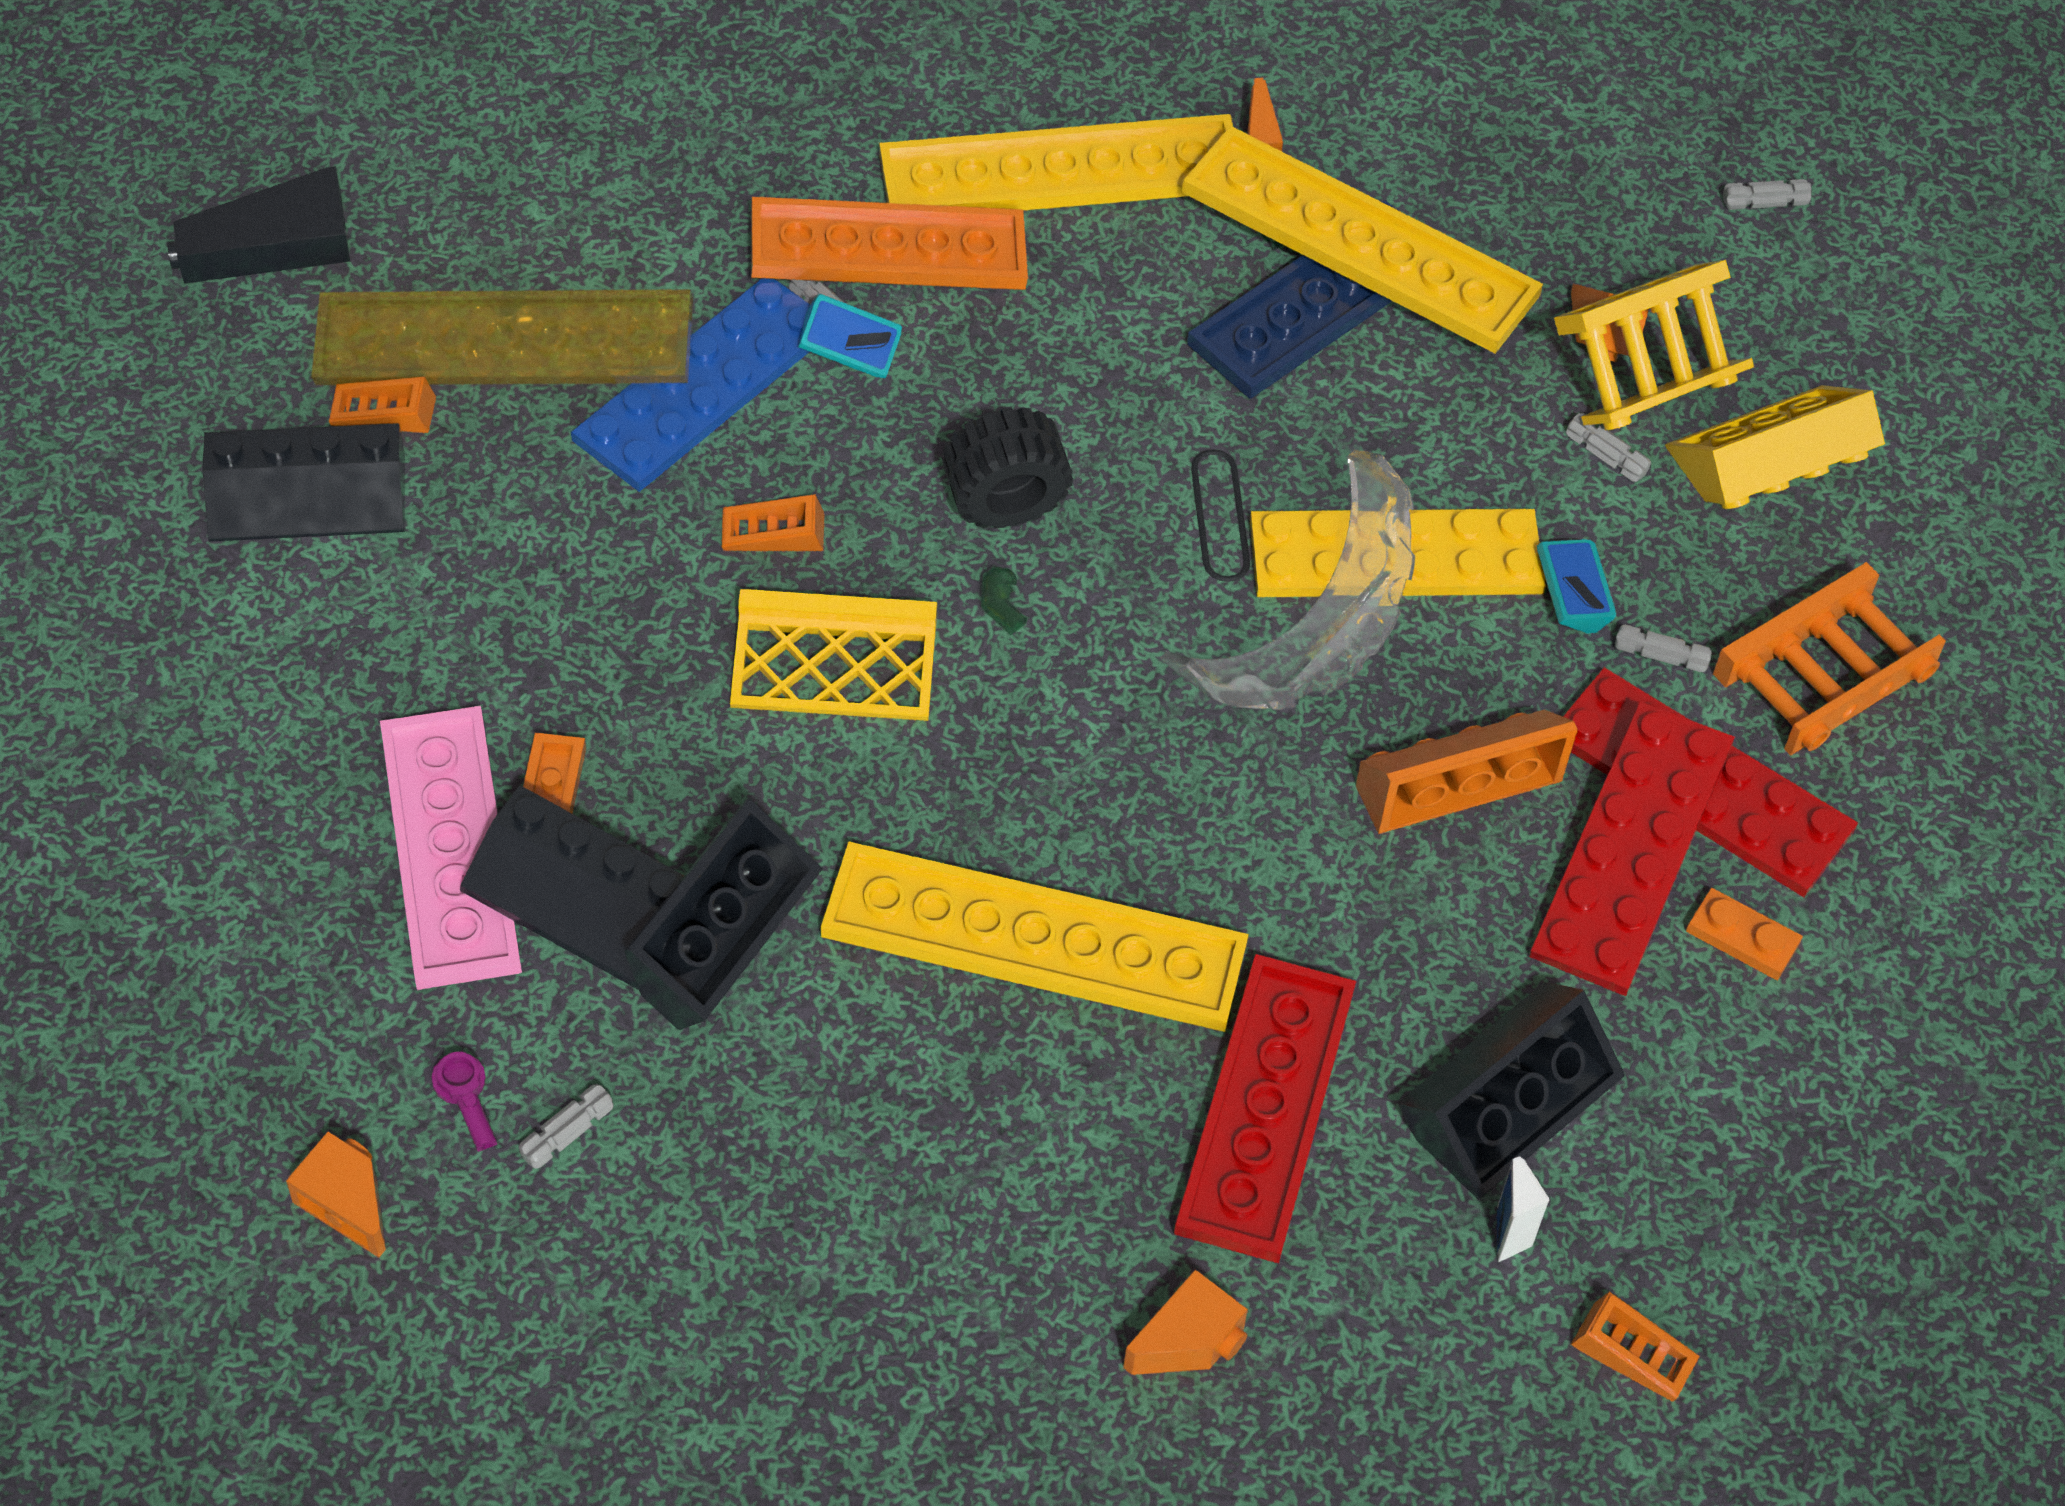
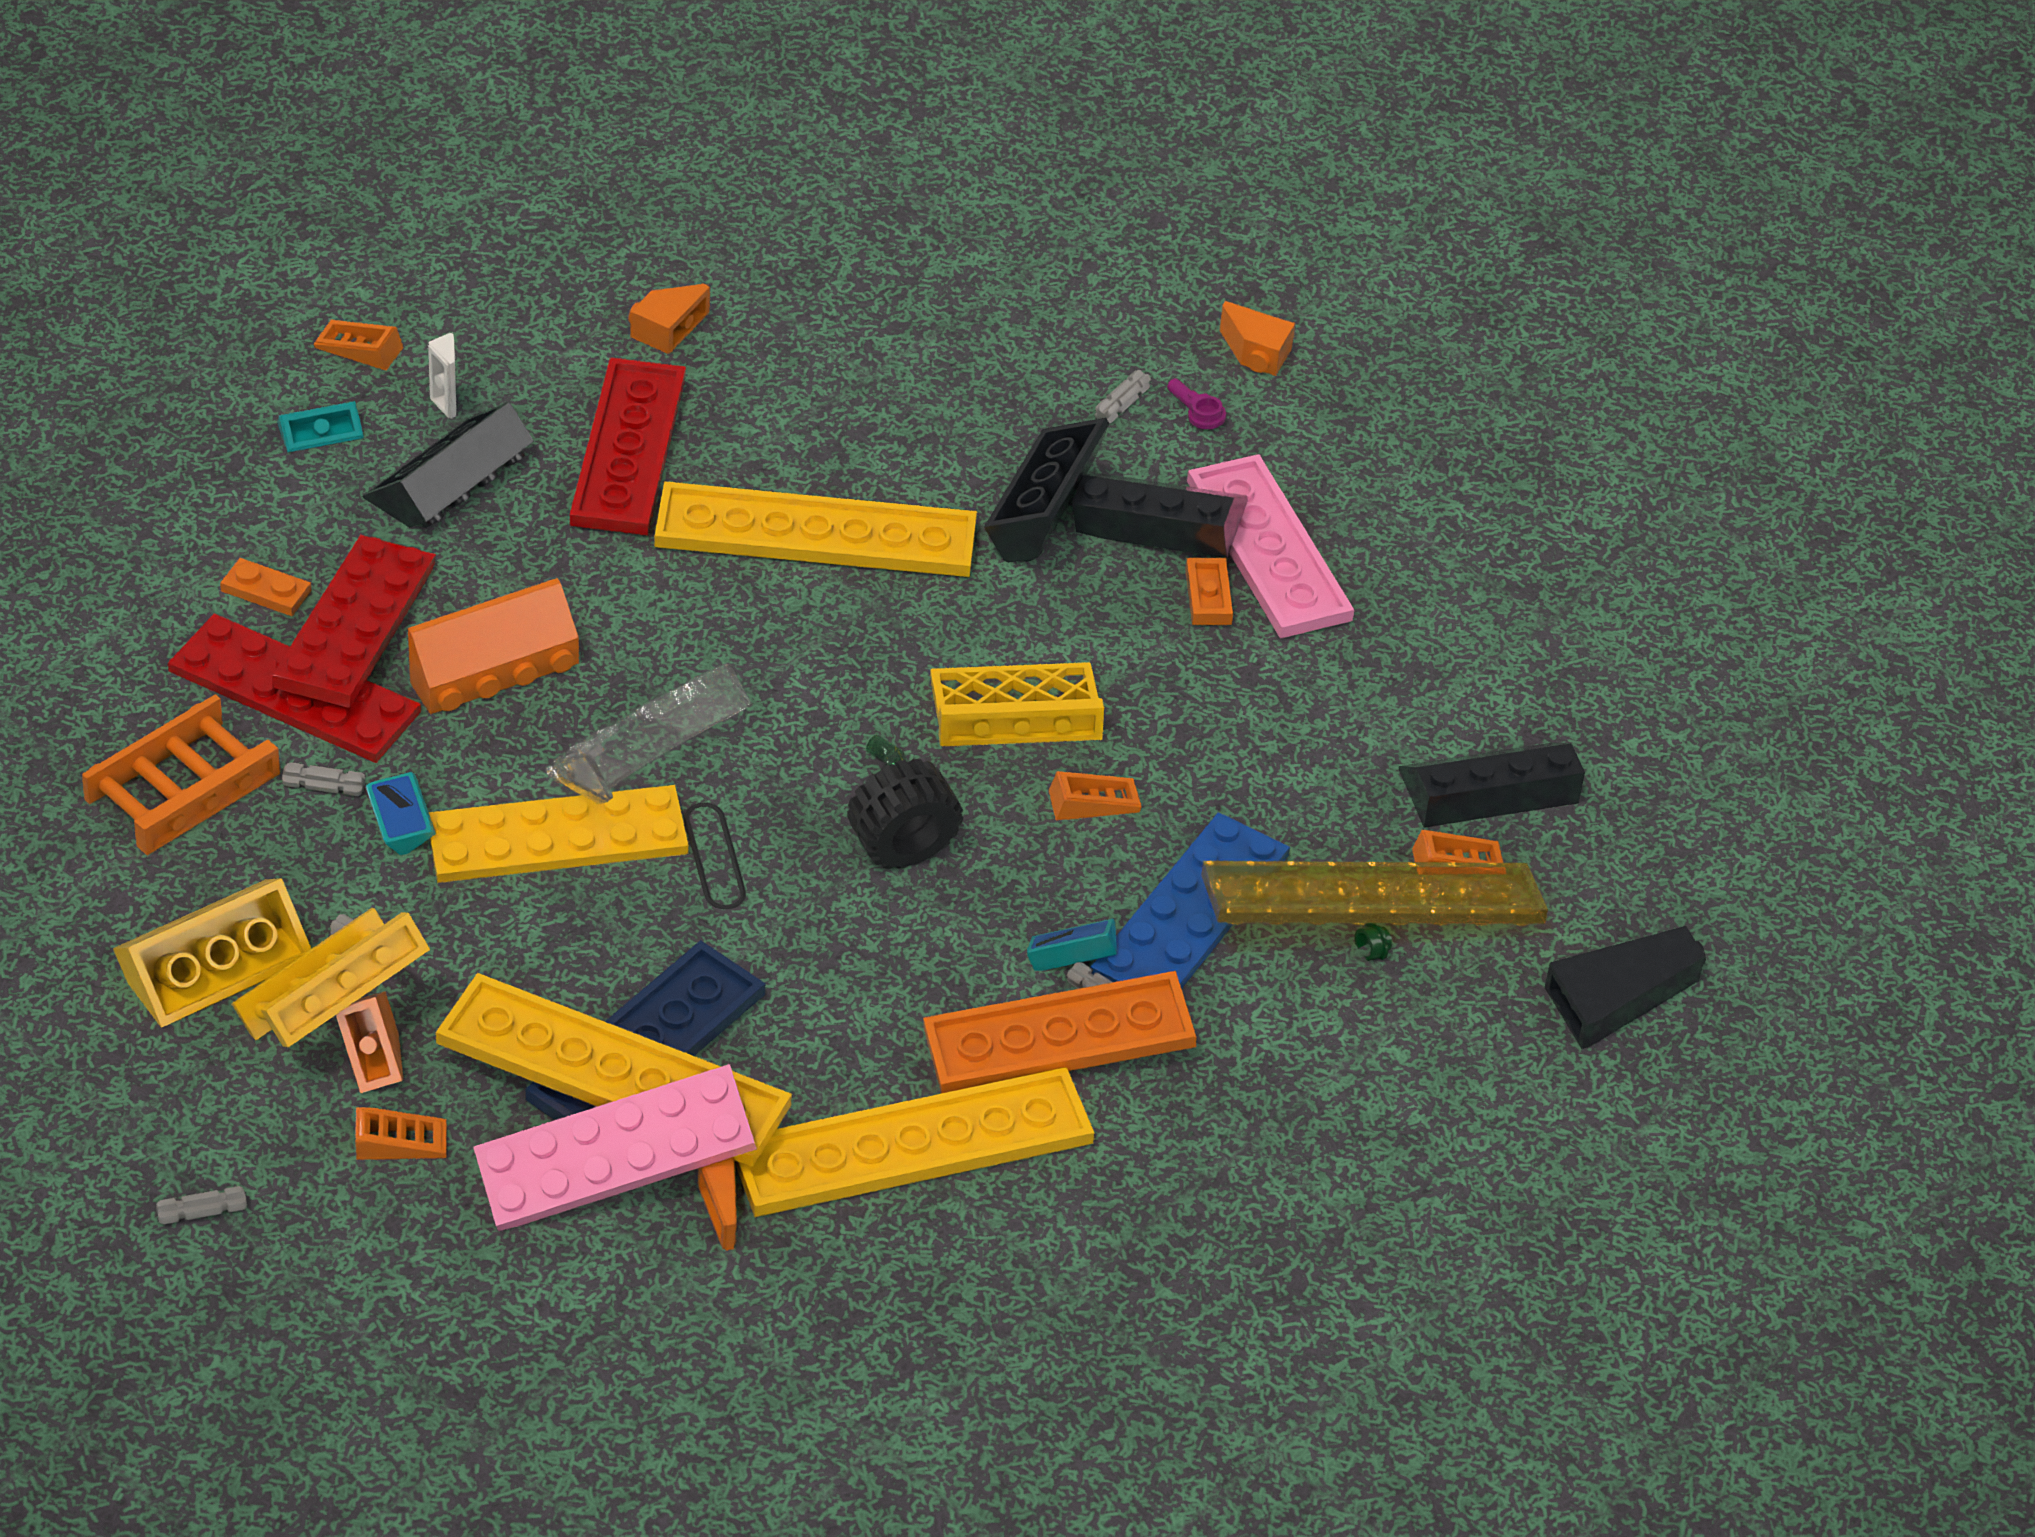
camera: 170 degrees right, 10 degrees down
(1364, 156) = (614, 1148): none -> bright pink plate
(1591, 249) = (384, 1147): none -> orange slope
(1685, 1198) = (320, 426): none -> teal slope

